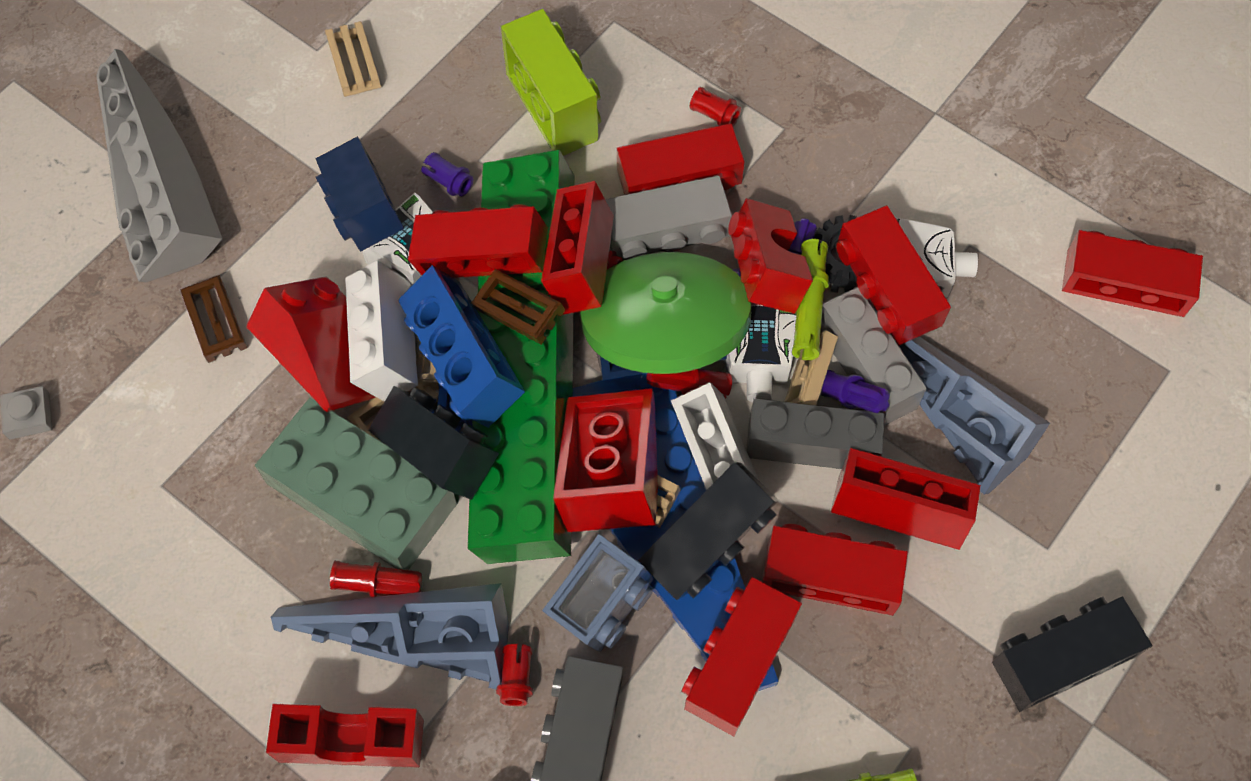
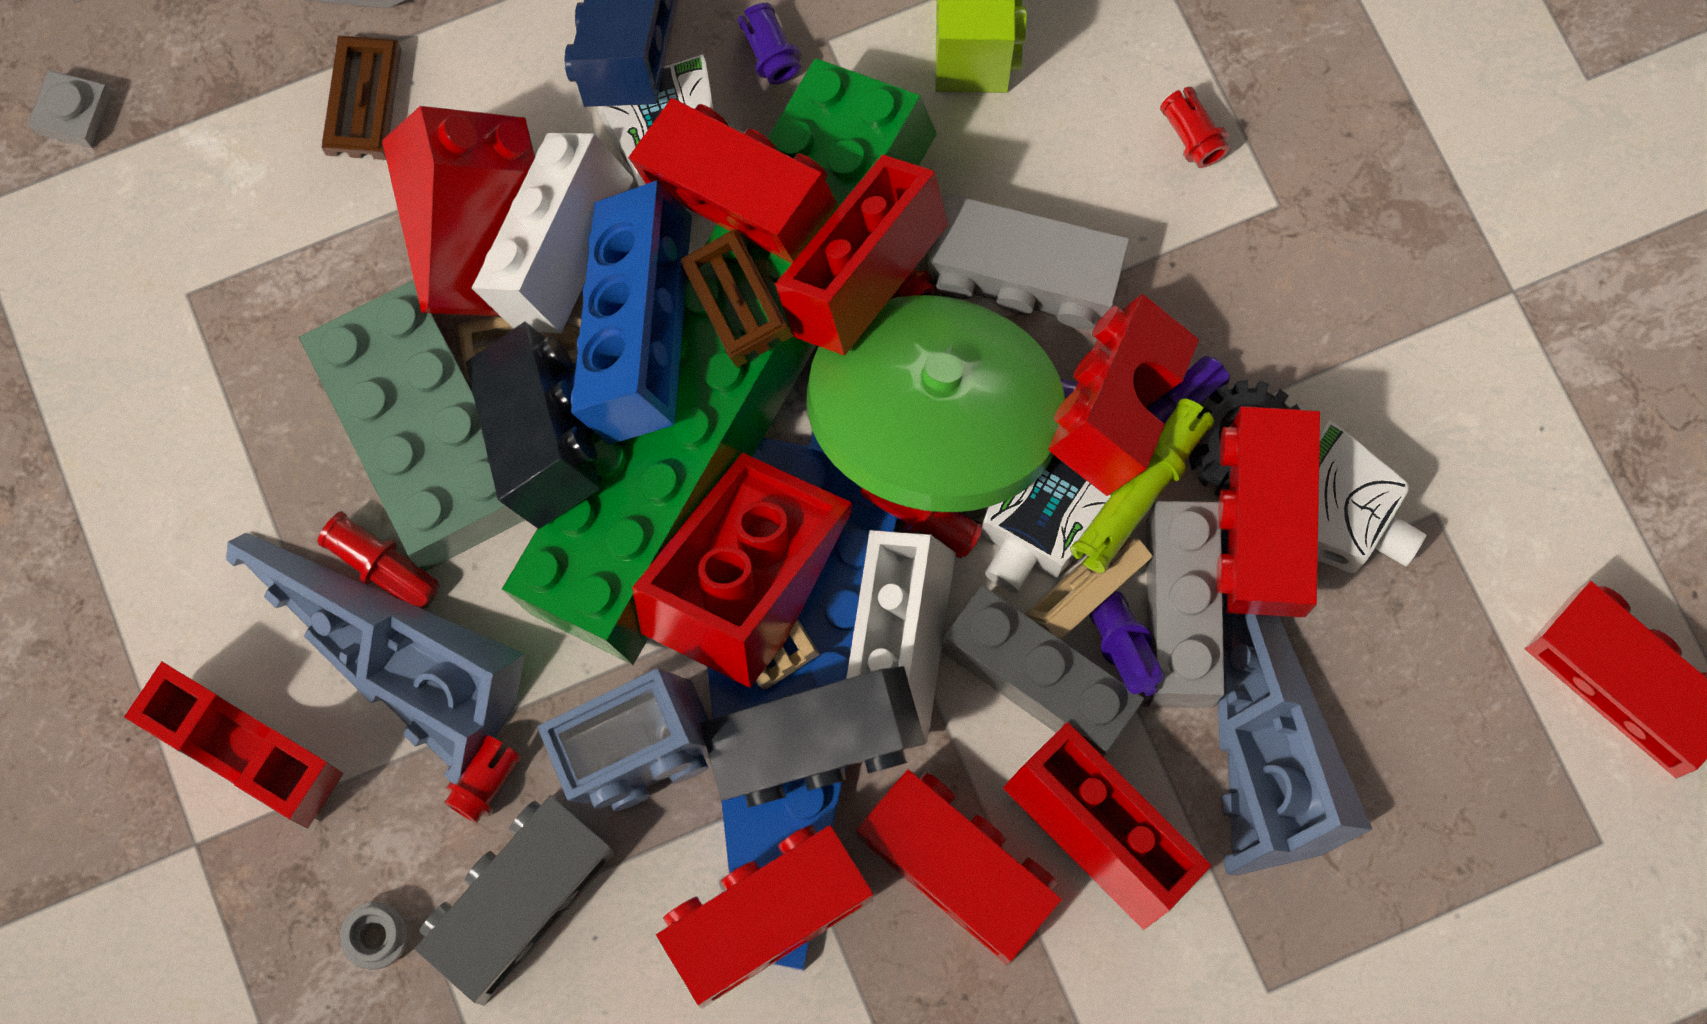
camera: 30 degrees right, 10 degrees up
(681, 160) = (1094, 189): red brick -> none

